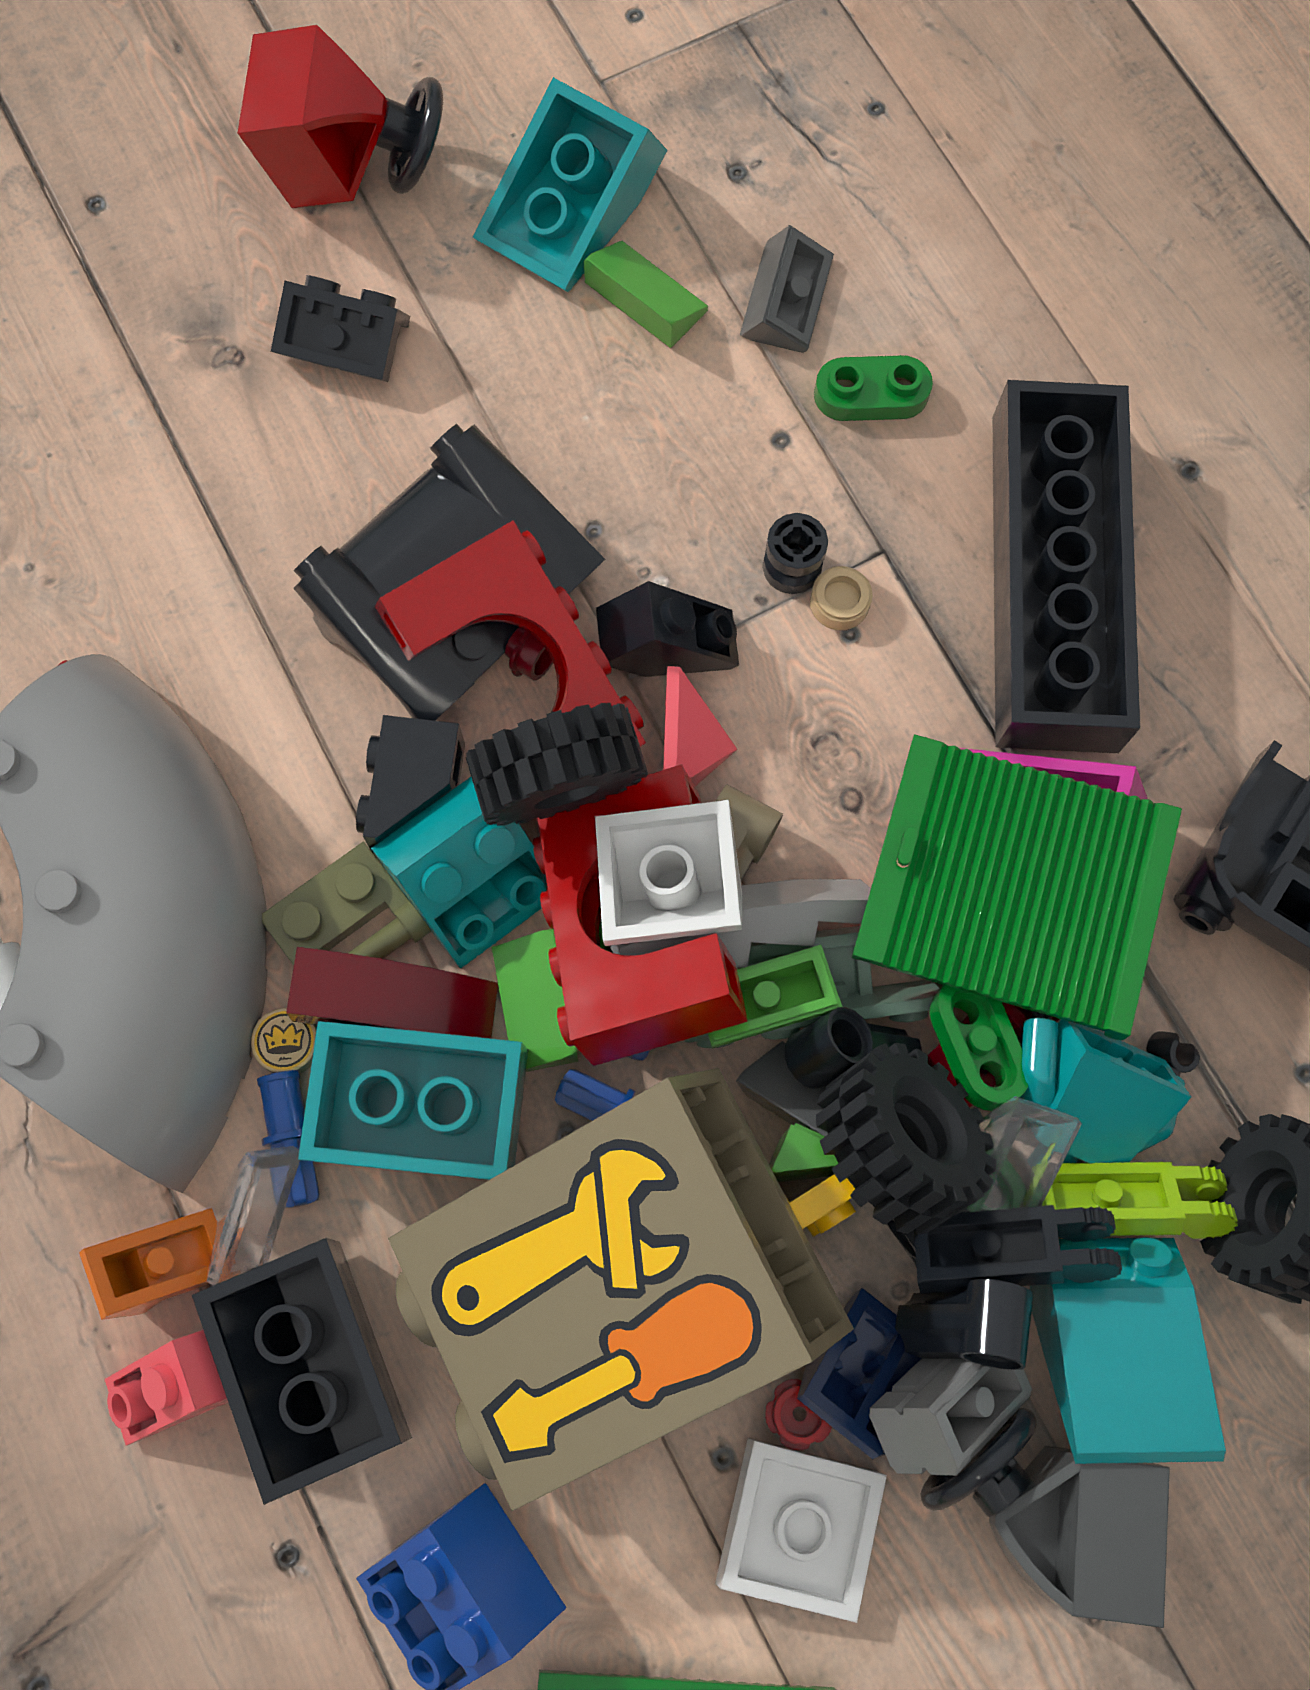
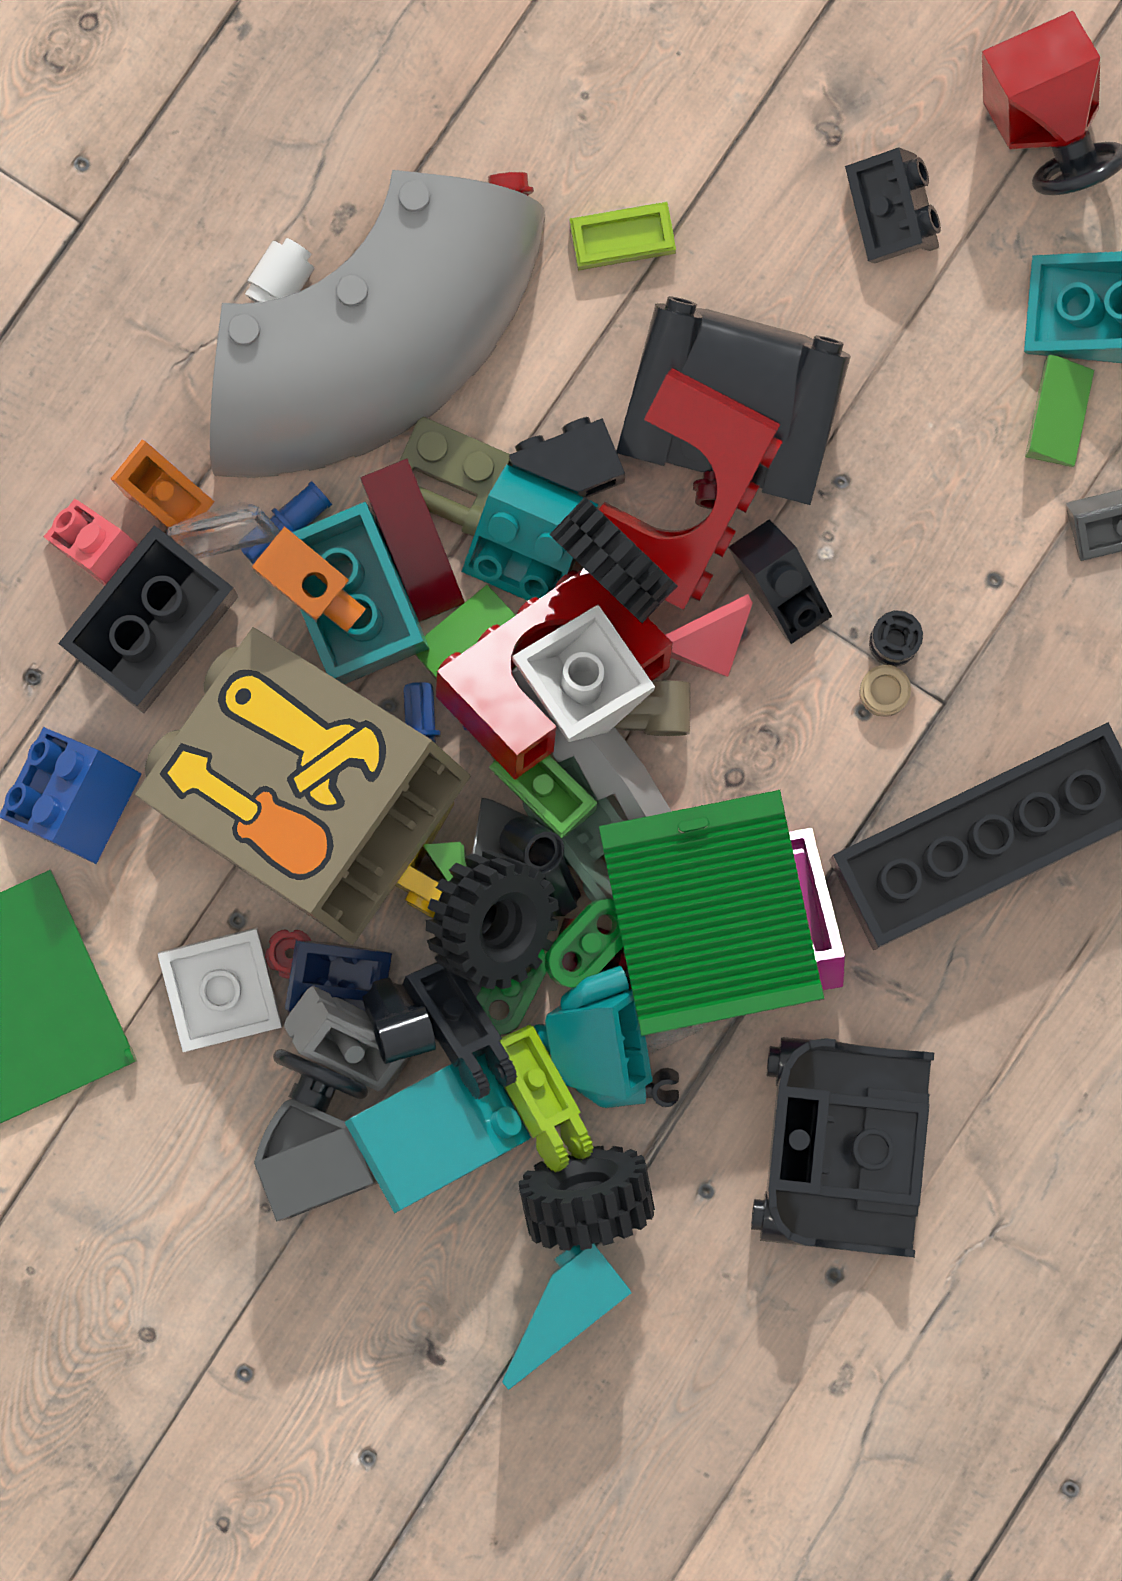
camera: 65 degrees right, 10 degrees up
(200, 605) = (622, 236): none -> lime tile
(283, 1044) = (343, 483): tile -> none
(337, 1141) = (290, 562): none -> orange torso
(875, 390) = (1071, 627): green plate -> none
(1028, 1153) = (526, 1006): clear slope -> none

